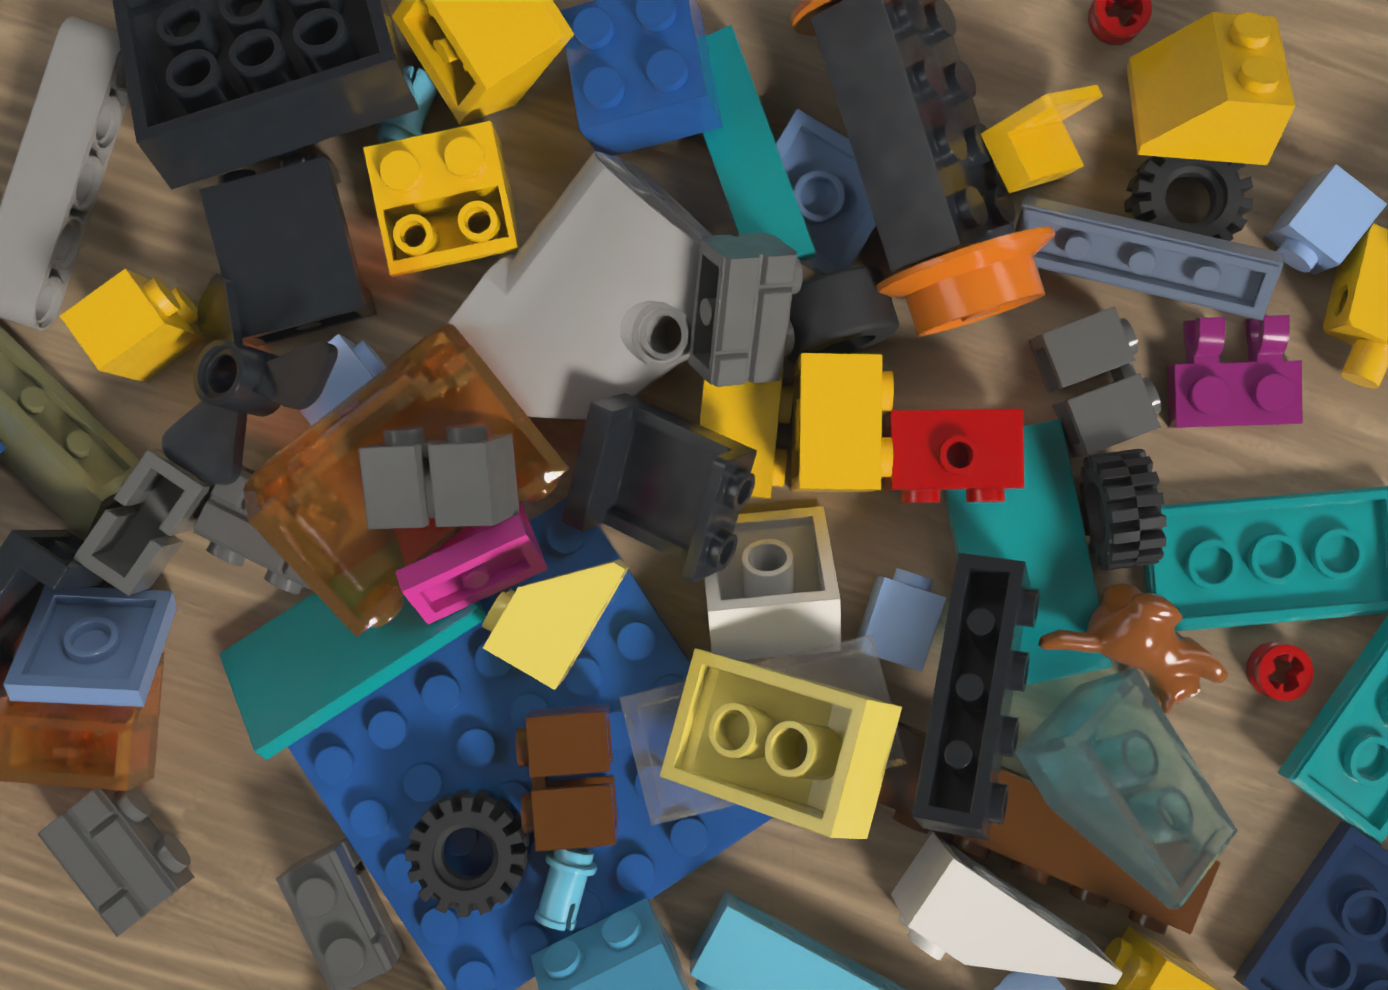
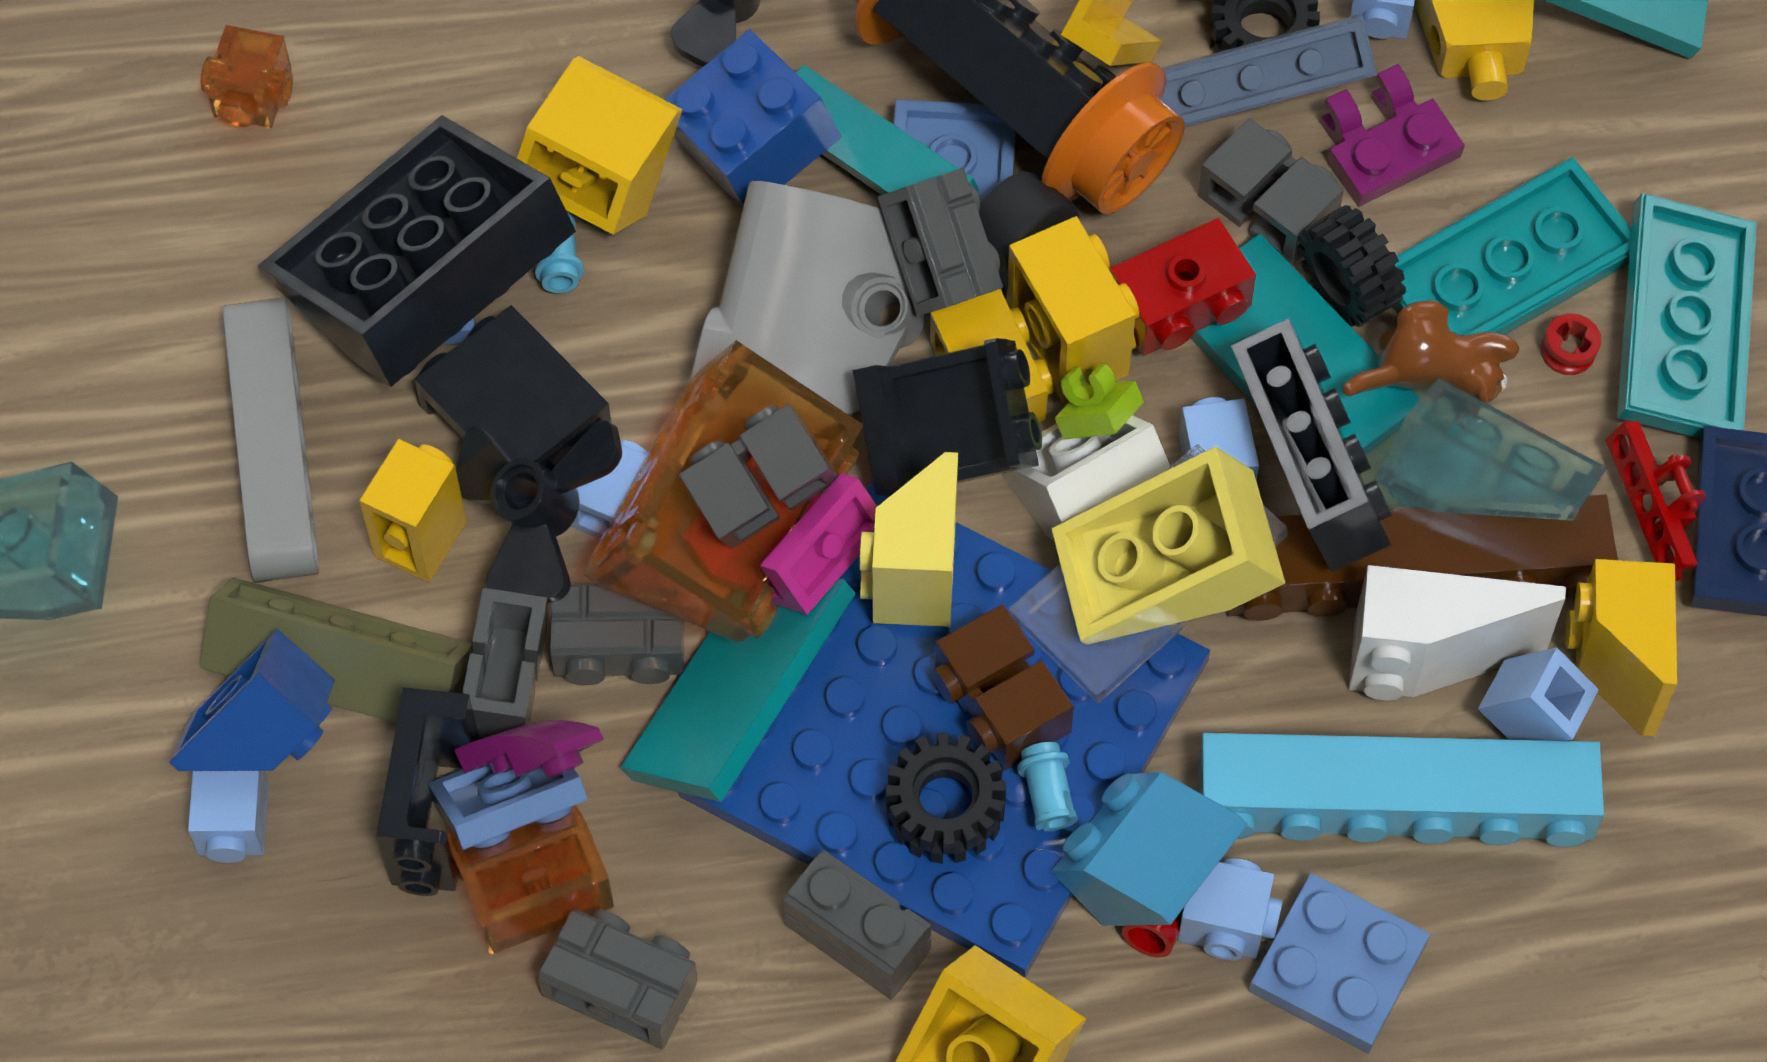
camera: 25 degrees left, 25 degrees down
(114, 634) = (537, 745): none -> magenta slope
(442, 198) = (627, 293): yellow slope -> none
(807, 536) = (1096, 407): none -> lime tile
(1274, 851) = (1673, 518): none -> red piece

